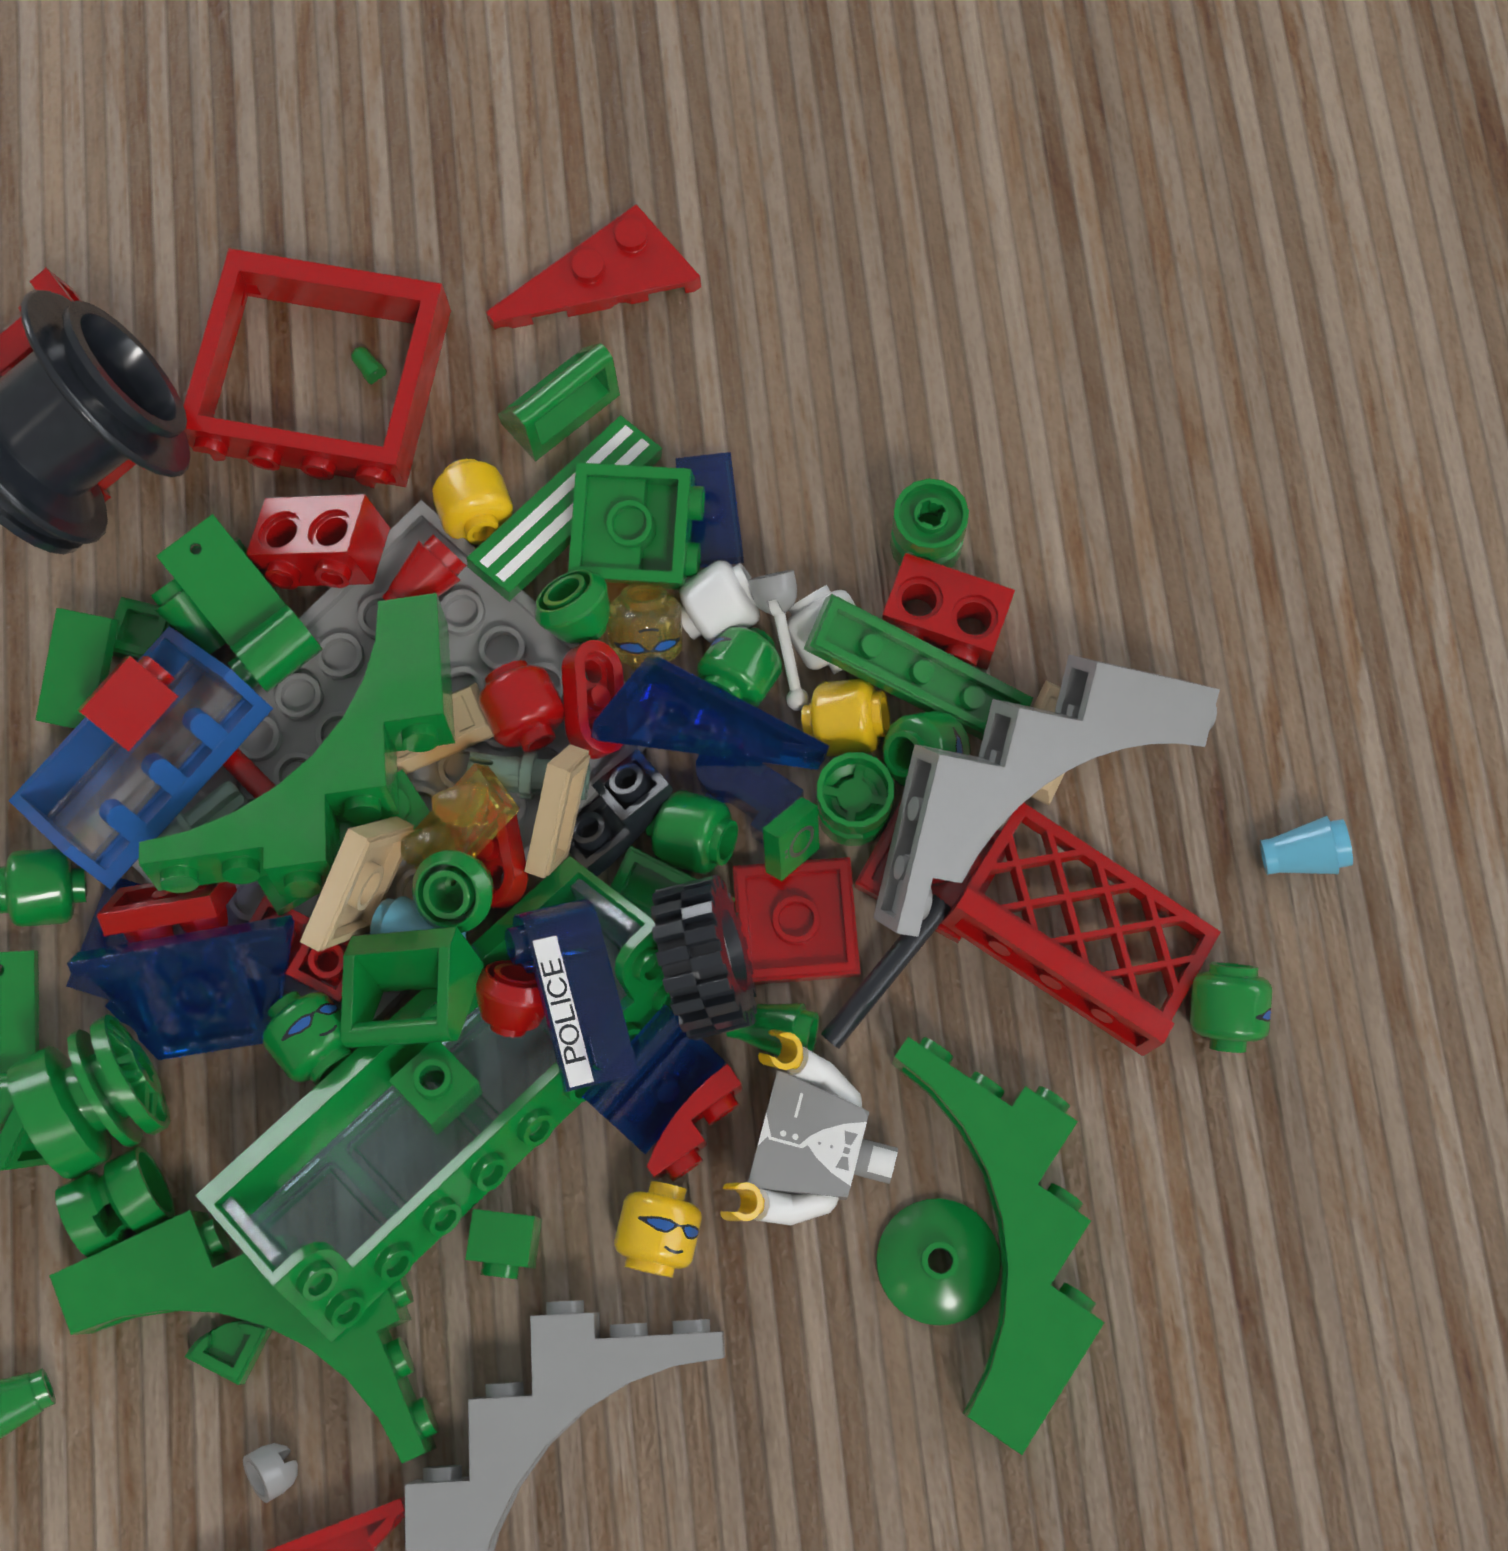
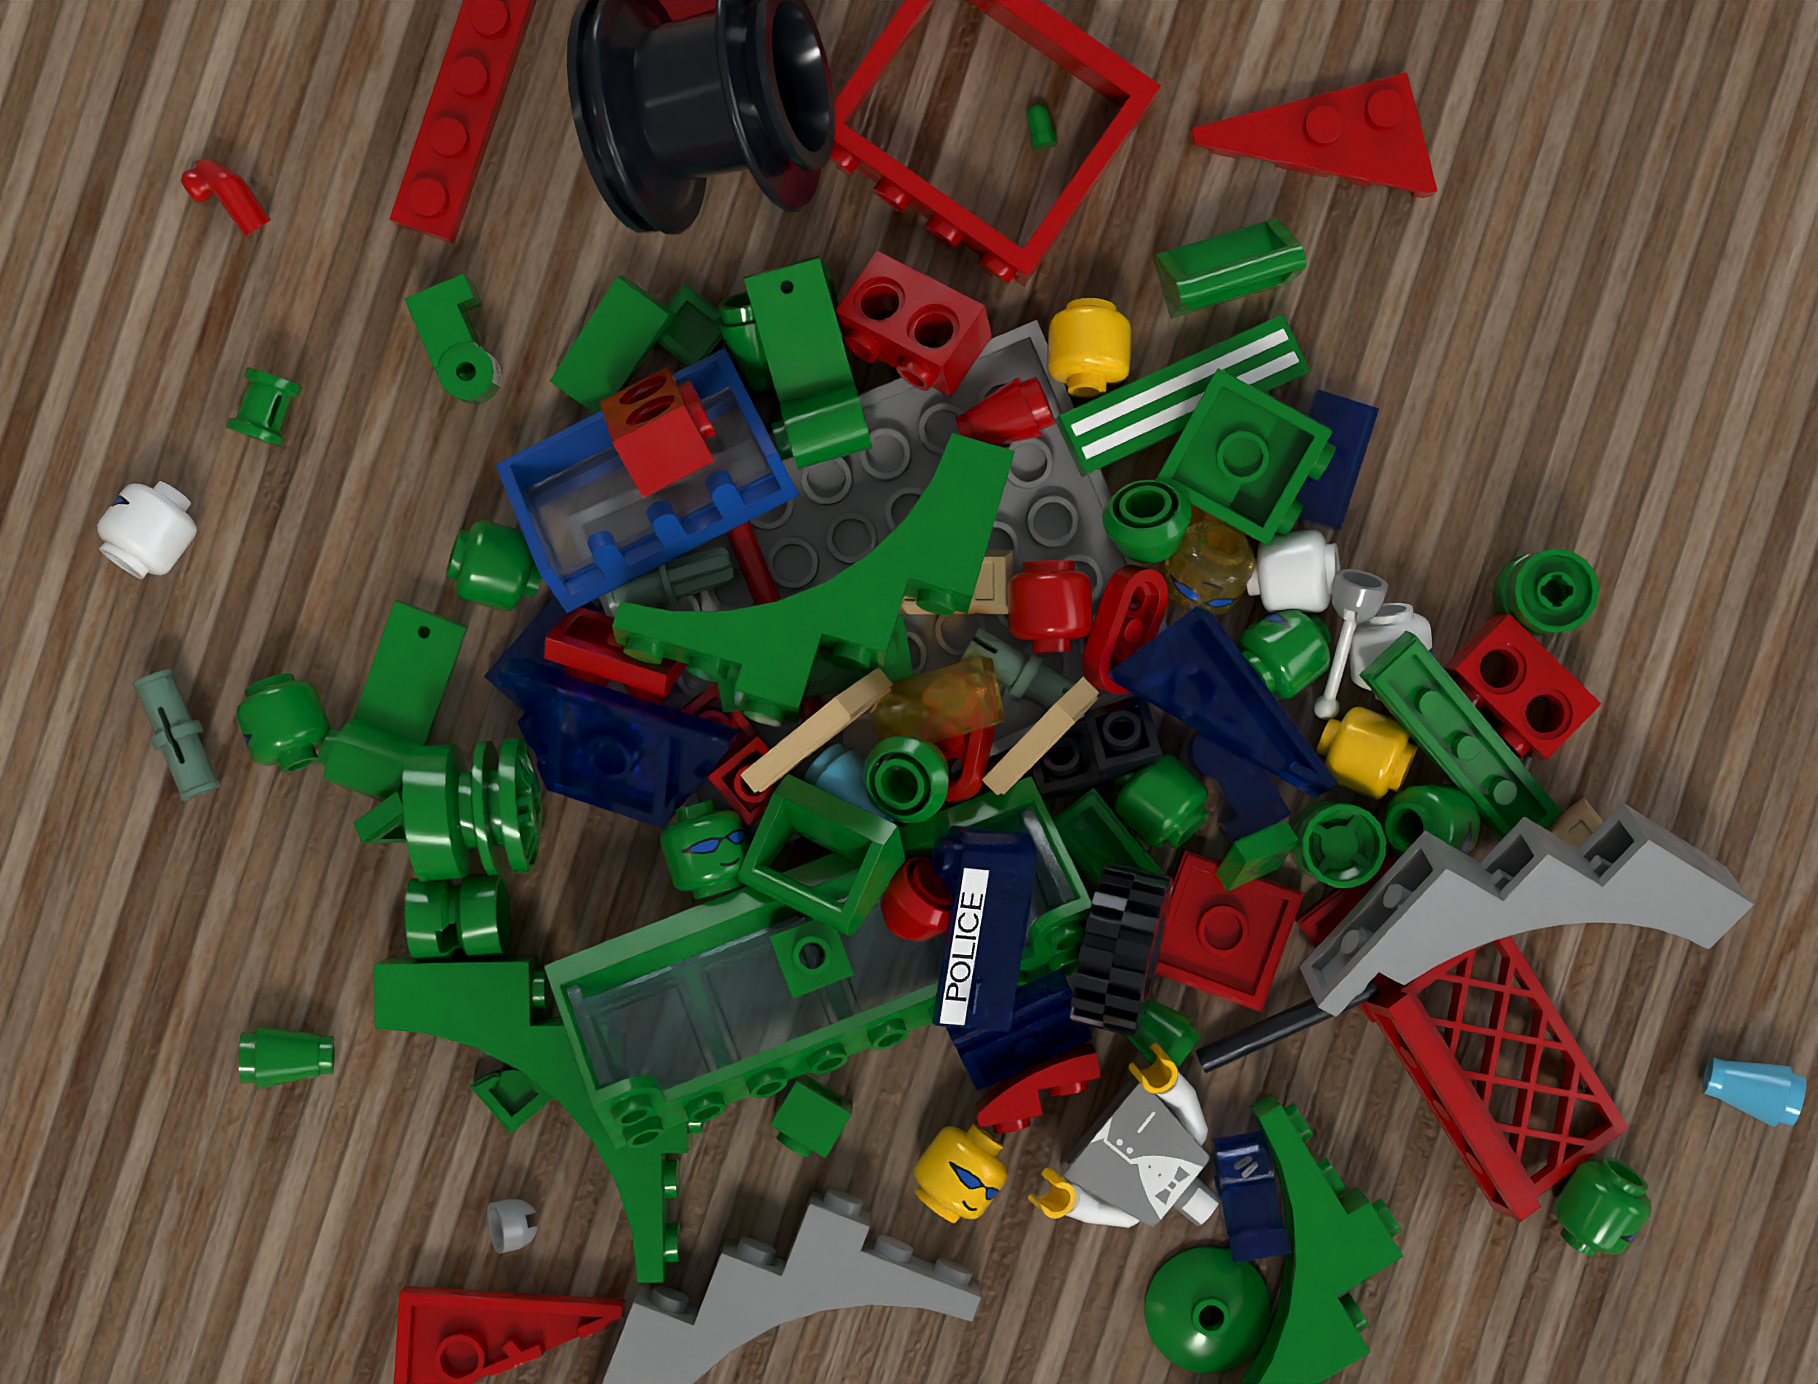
camera: 25 degrees right, 15 degrees up
(922, 1136) = (1248, 1198): none -> clear blue leg

